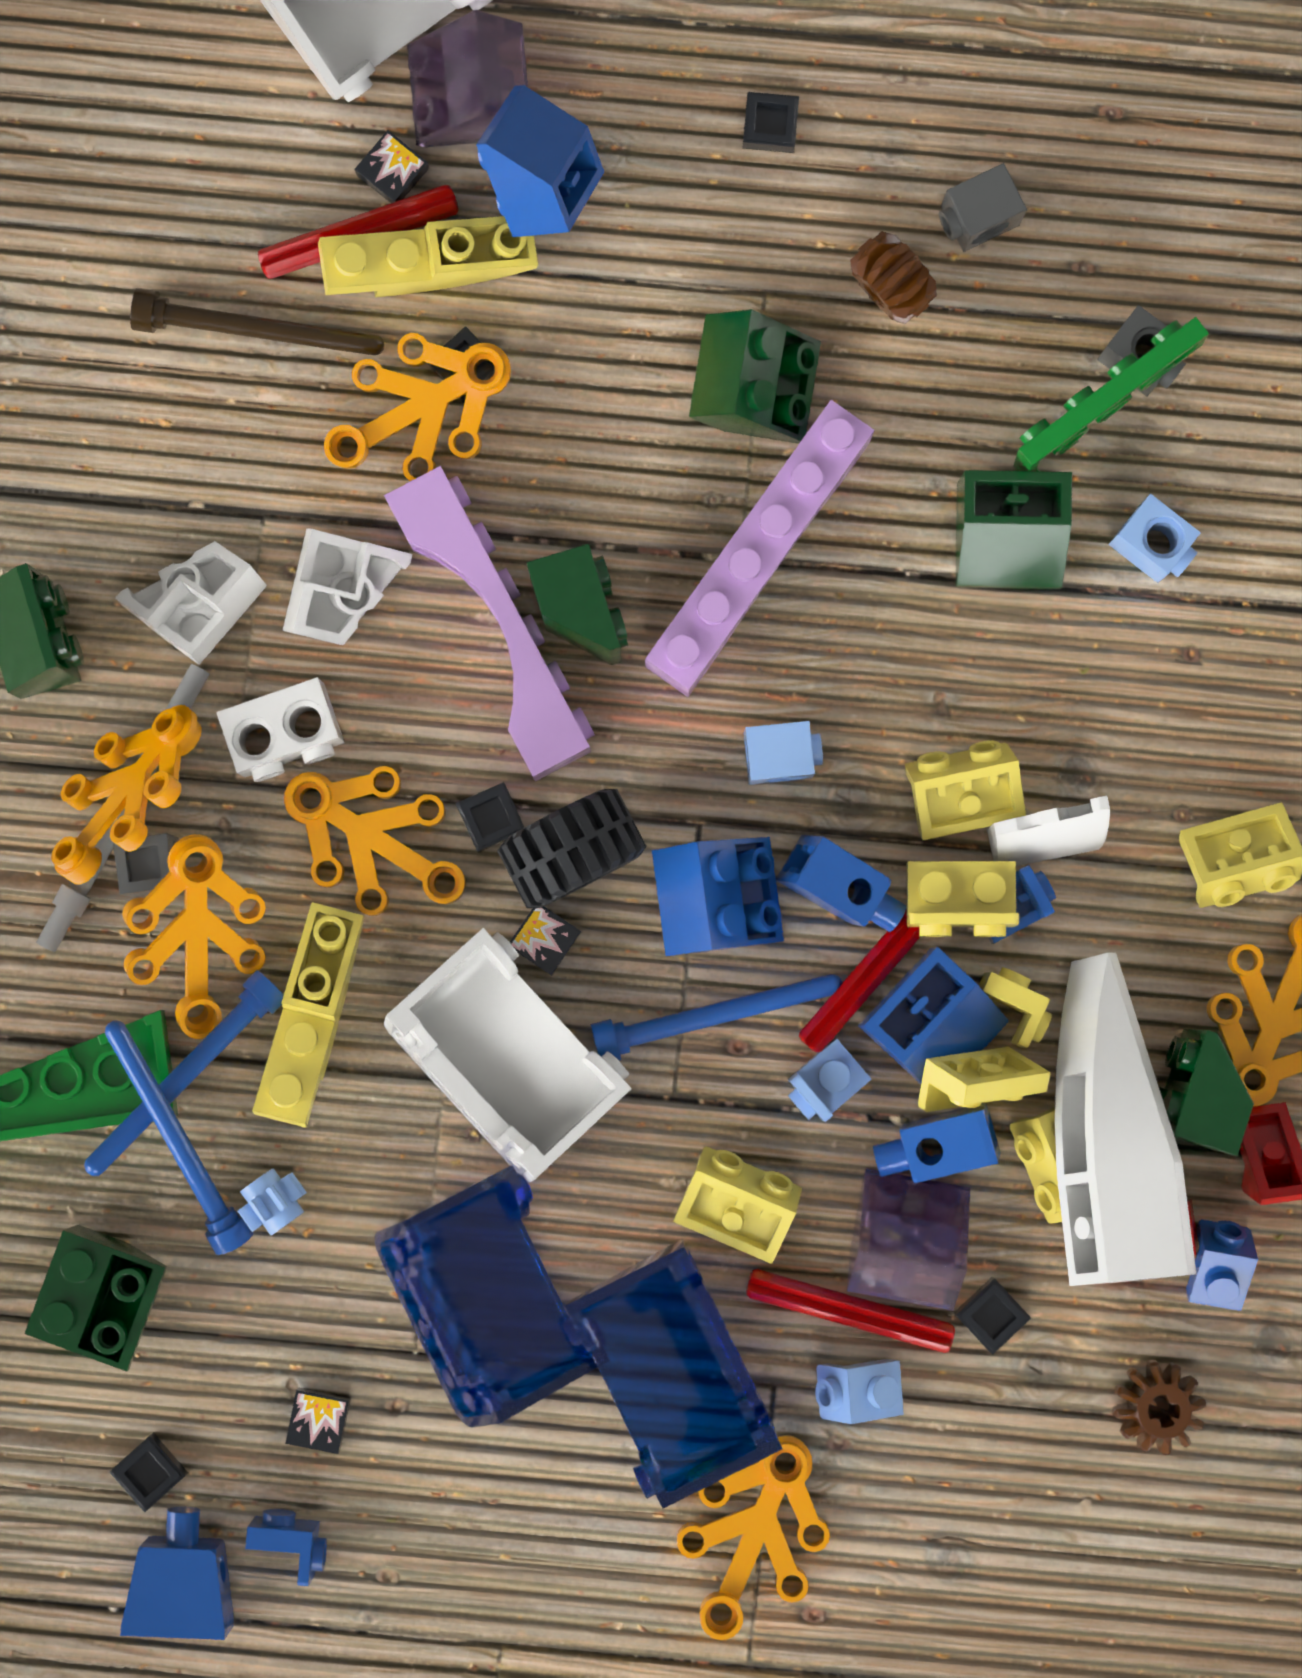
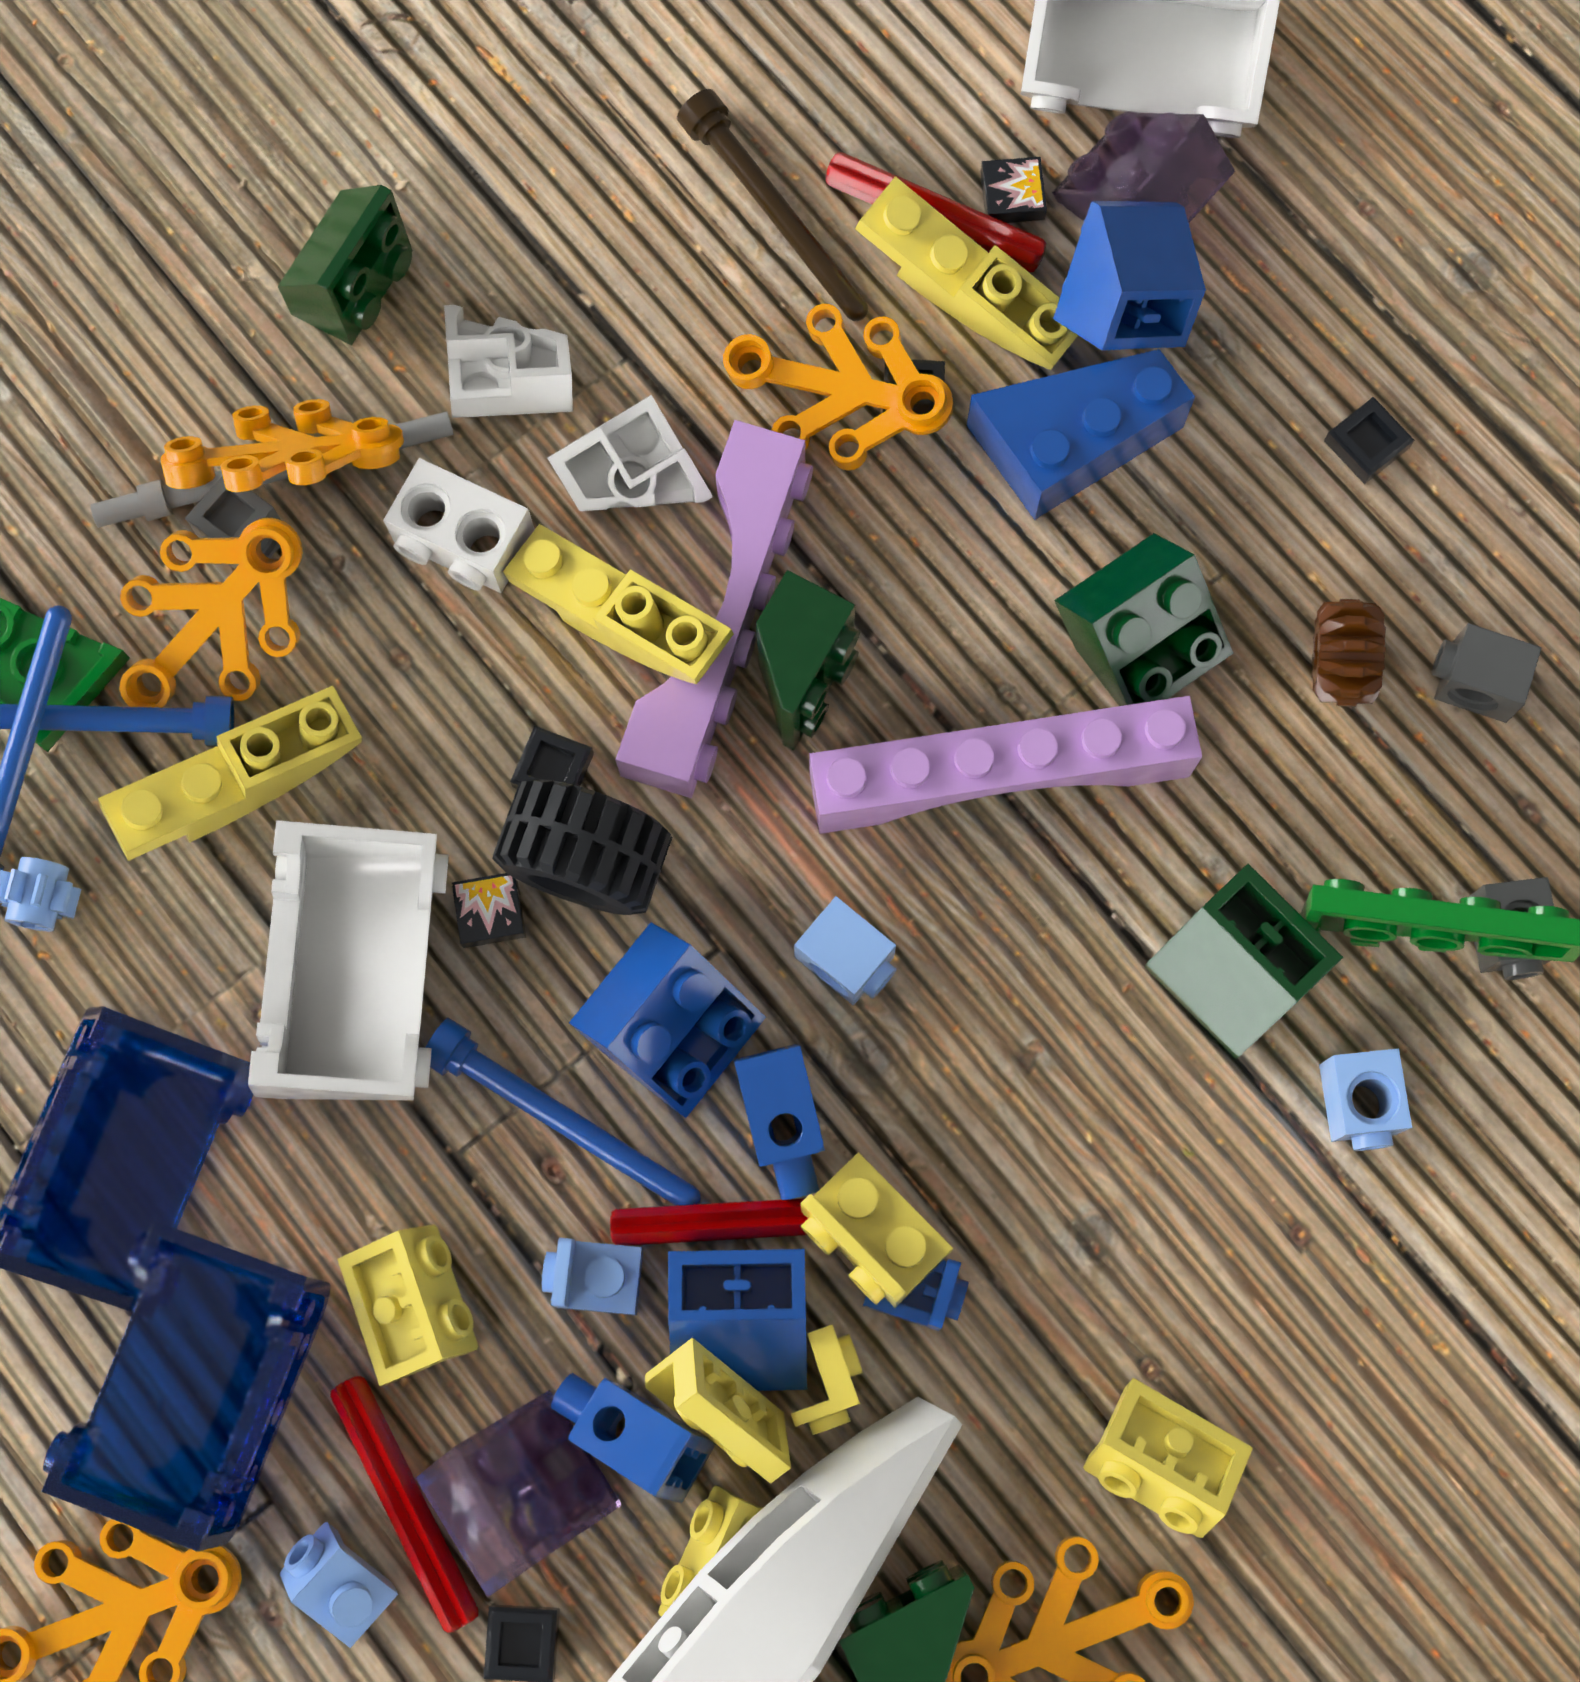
camera: 50 degrees right, 10 degrees down
(366, 834) = (438, 679): light orange plant -> none
(435, 683) = (618, 607): none -> light yellow slope
(591, 291) = (1078, 425): none -> blue wedge
(965, 789) = (975, 1146): light yellow bracket -> none
(1051, 833) = (1011, 1259): white slope -> none

